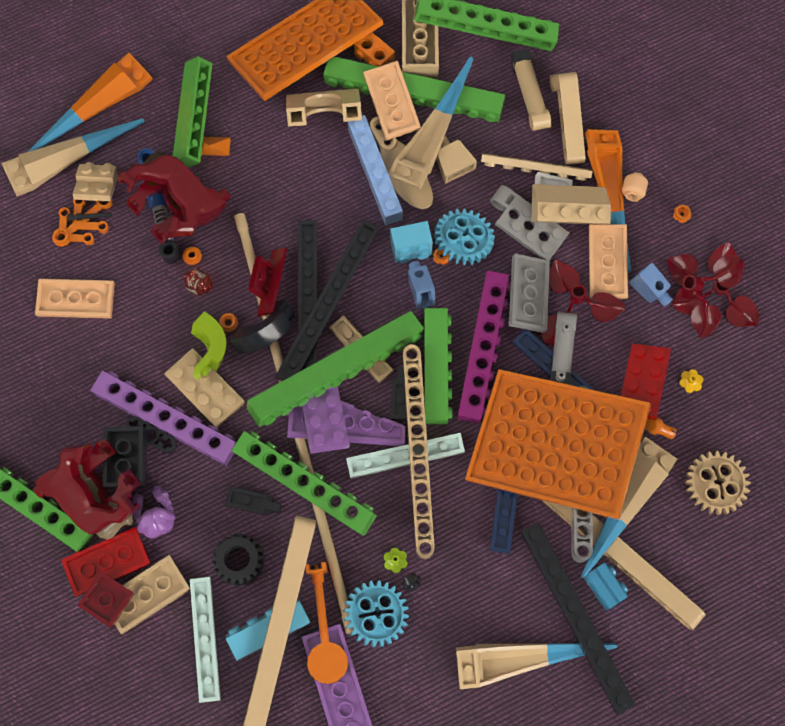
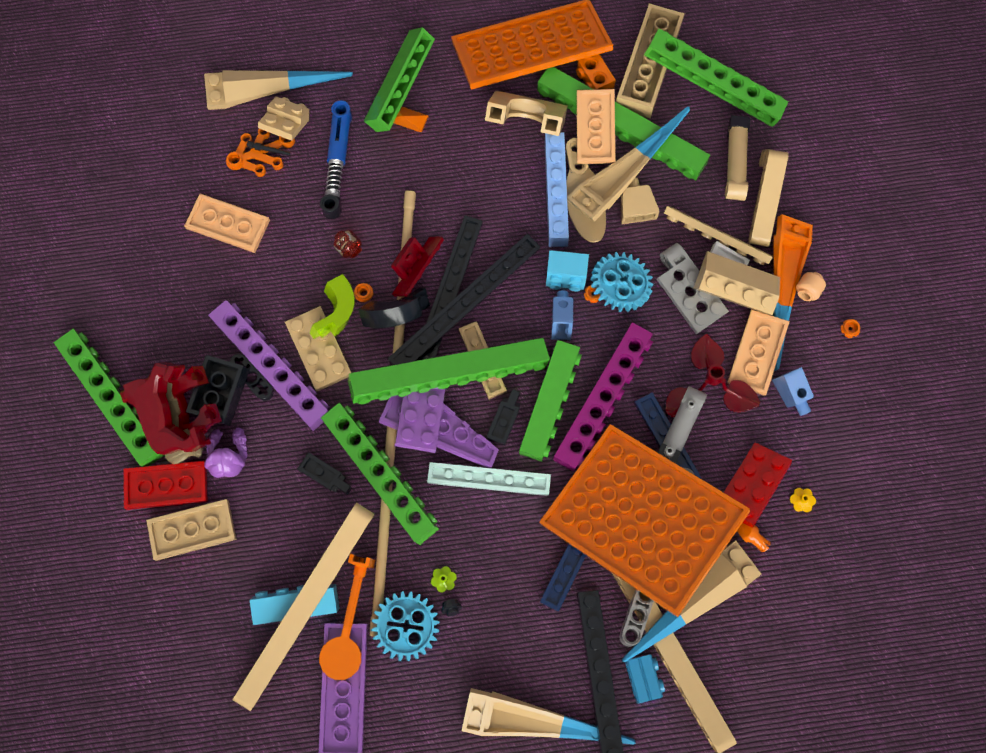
camera: 20 degrees right, 0 degrees up
(106, 599) = (150, 522): dark red plate -> none
(114, 85) = (337, 32): orange plate -> none
(181, 190) = (362, 152): dark red piece -> none
(196, 259) = (354, 221): orange plate -> none
(205, 640) = (231, 594): light aqua plate -> none
(229, 545) = (274, 521): black tyre -> none
(418, 440) = (504, 468): tan beam -> none
(529, 293) = (667, 358): light grey plate -> none
(683, 270) = (877, 404): dark red plant -> none
(700, 486) = (814, 614): tan gear -> none
(740, 312) = (877, 390): dark red plant -> none

